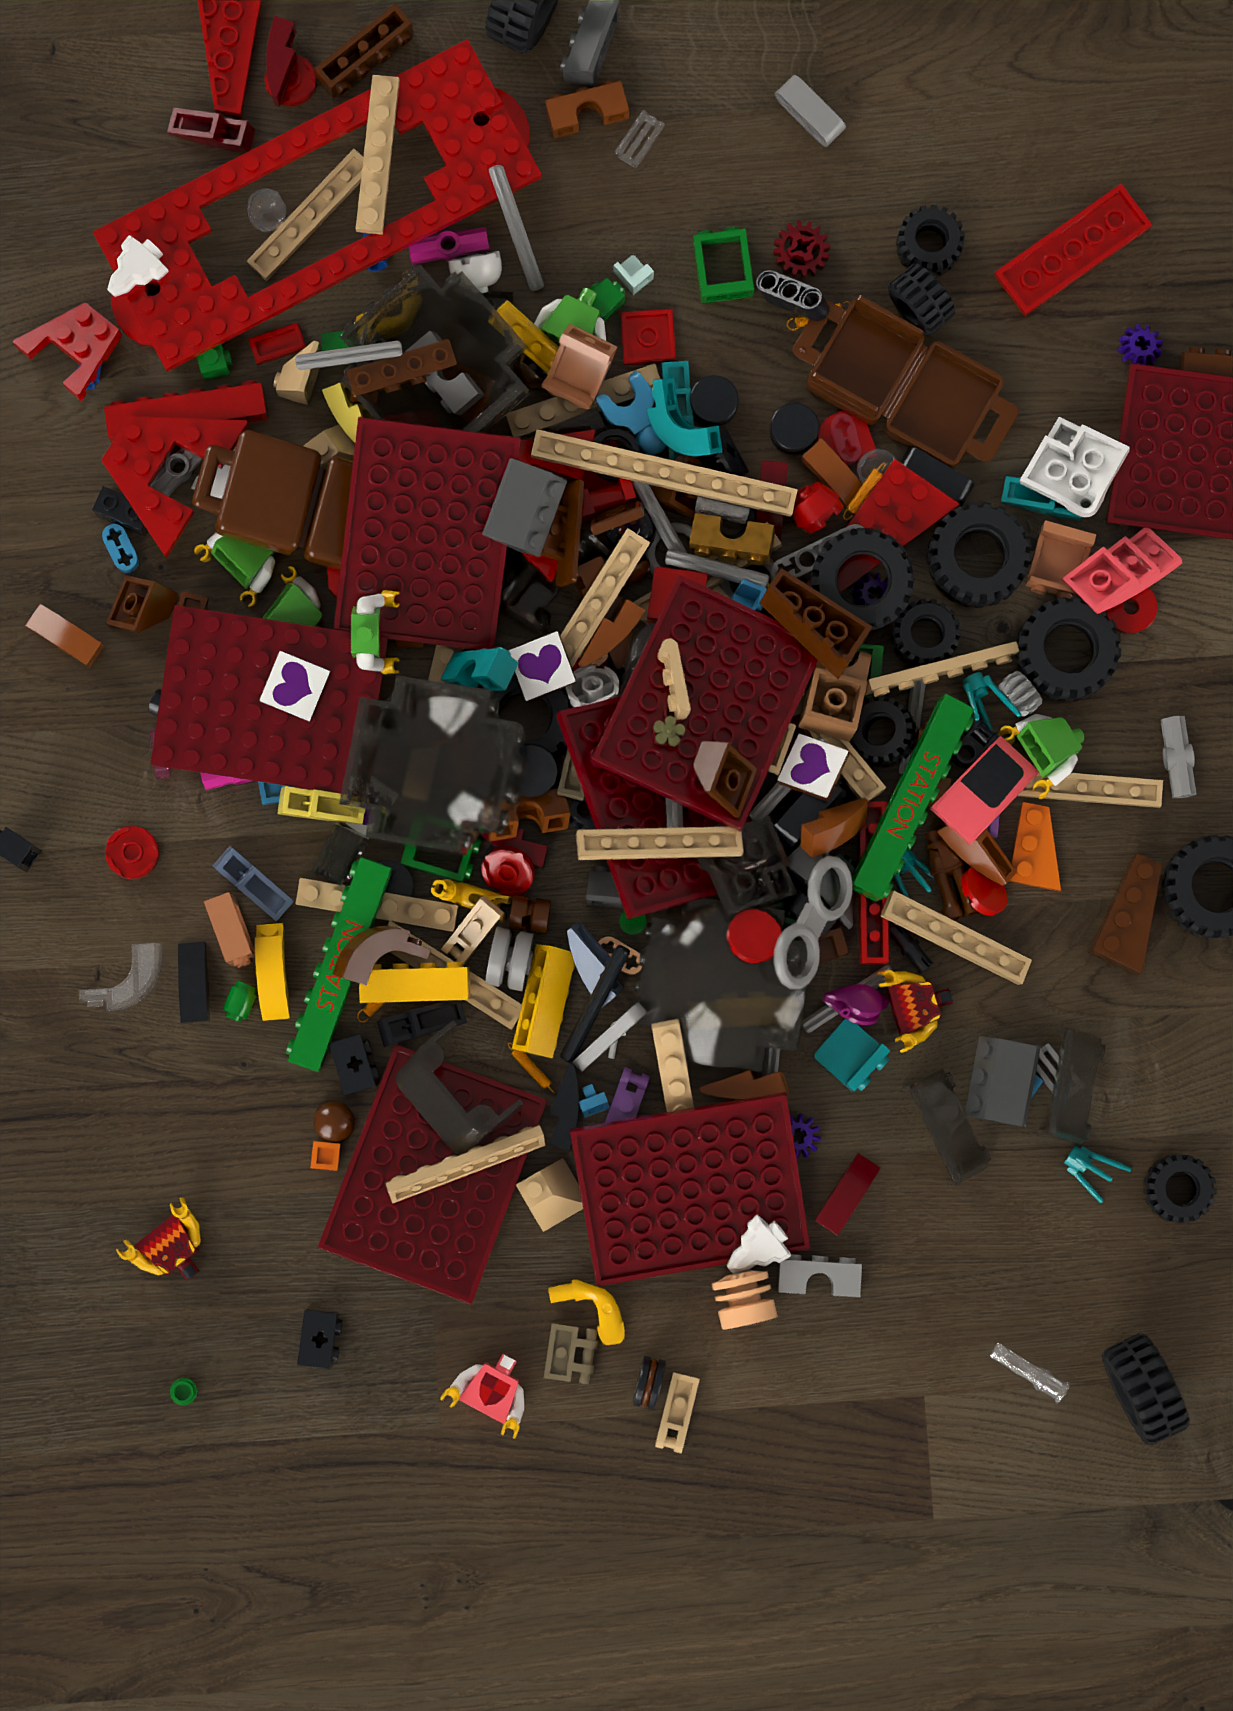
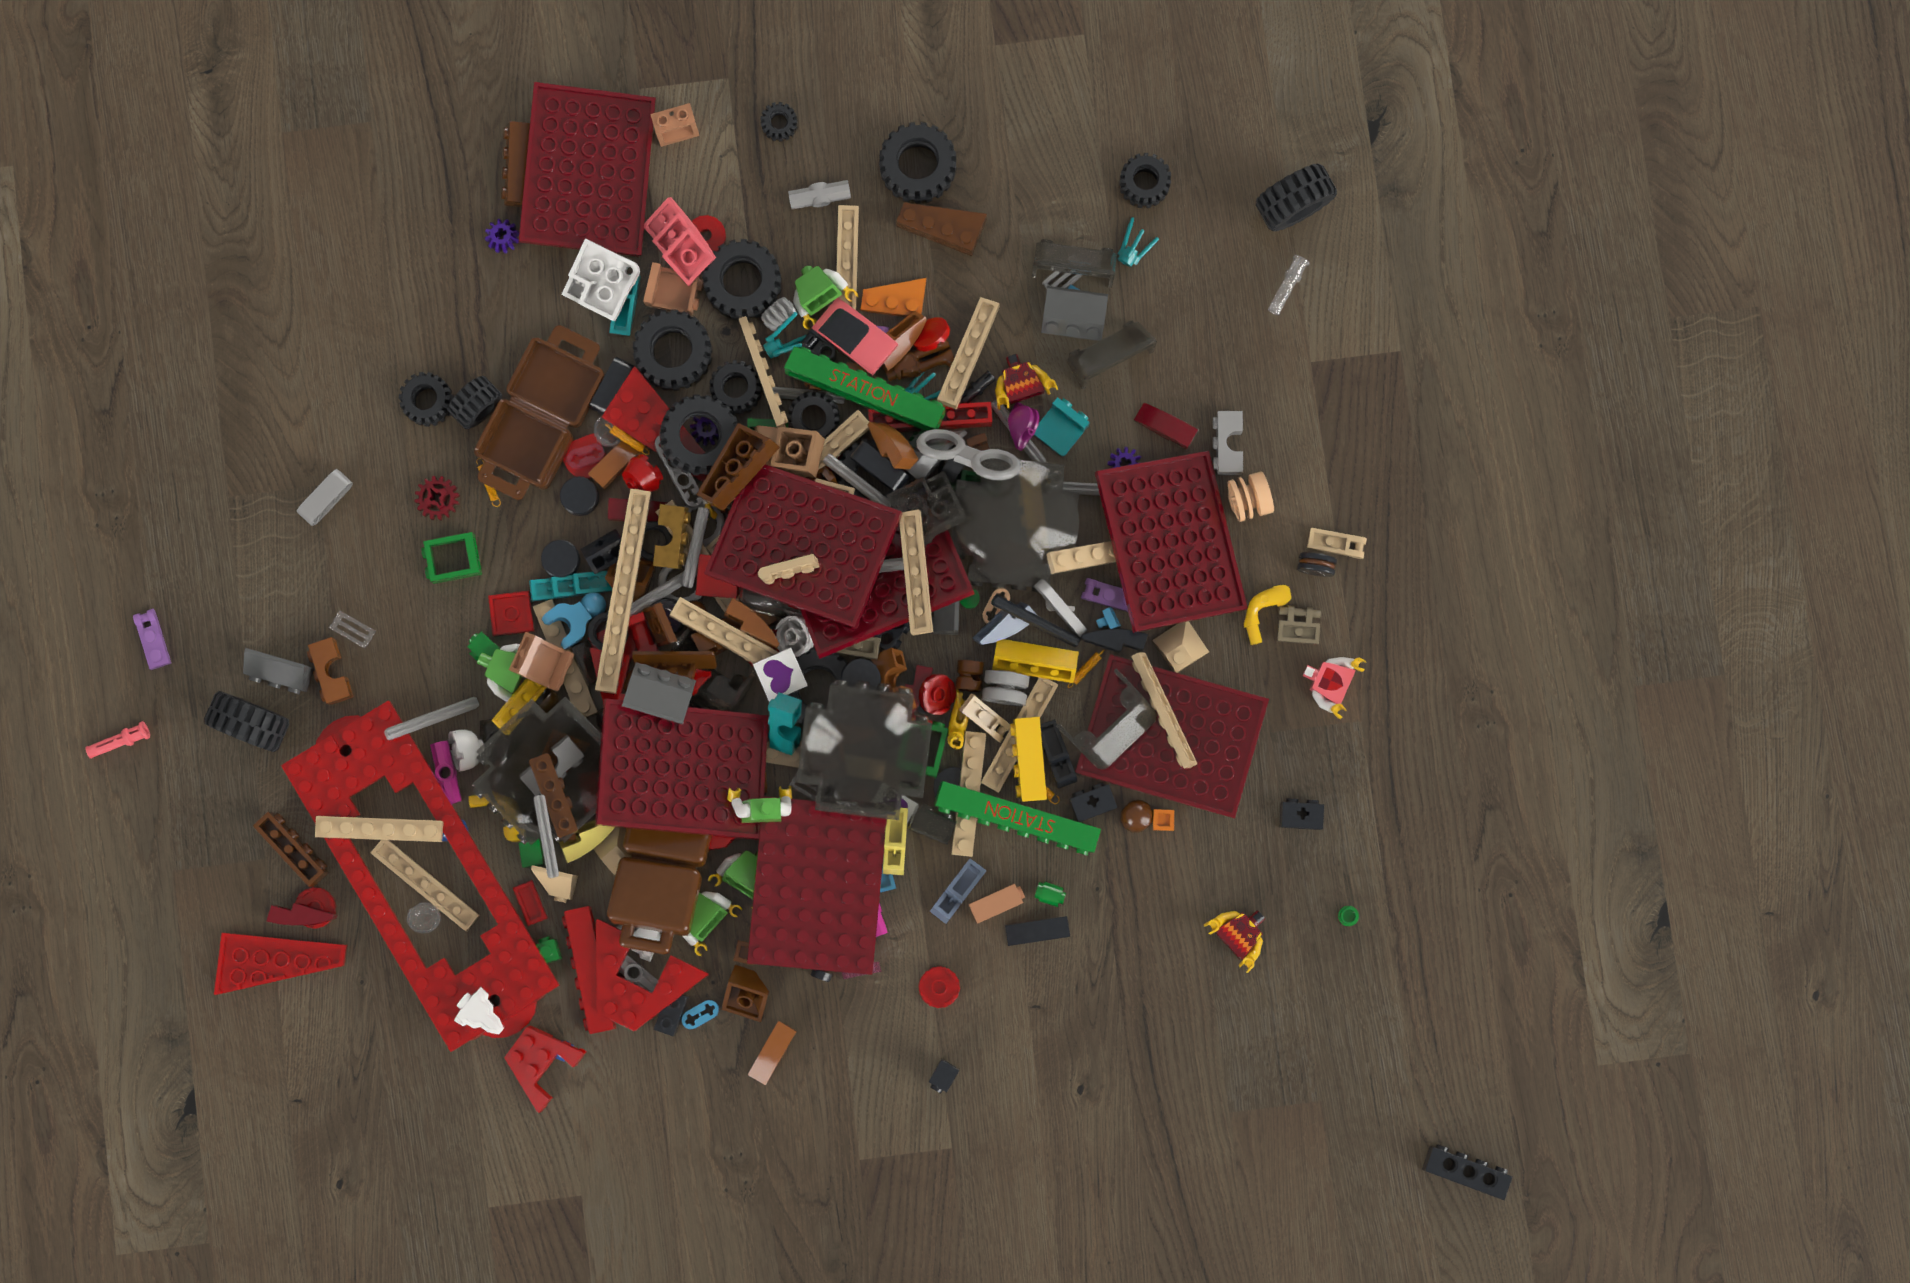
camera: 90 degrees left, 0 degrees up
(142, 978) = (1033, 969): clear arch -> none
(212, 130) = (359, 967): dark red slope -> none
(271, 972) = (1025, 870): yellow arch -> none
(295, 686) = (806, 864): white tile -> none
(368, 946) = (1005, 794): reddish brown arch -> none
(633, 274) = (461, 627): light aqua panel -> none
(669, 731) = (829, 571): olive plant -> none
(674, 429) = (589, 583): teal arch -> none
(722, 510) = (649, 545): clear tile -> none
(724, 774) = (861, 525): reddish brown slope -> none
(747, 1086) = (1091, 502): dark orange slope -> none
(749, 594) = (715, 521): dark azure panel -> none
(753, 935) = (981, 498): red tile -> none
(759, 1246) = (1210, 487): white rock -> none
(800, 303) = (469, 508): black beam -> none
(813, 767) = (848, 463): tile -> none
(1073, 249) = (427, 290): red plate -> none

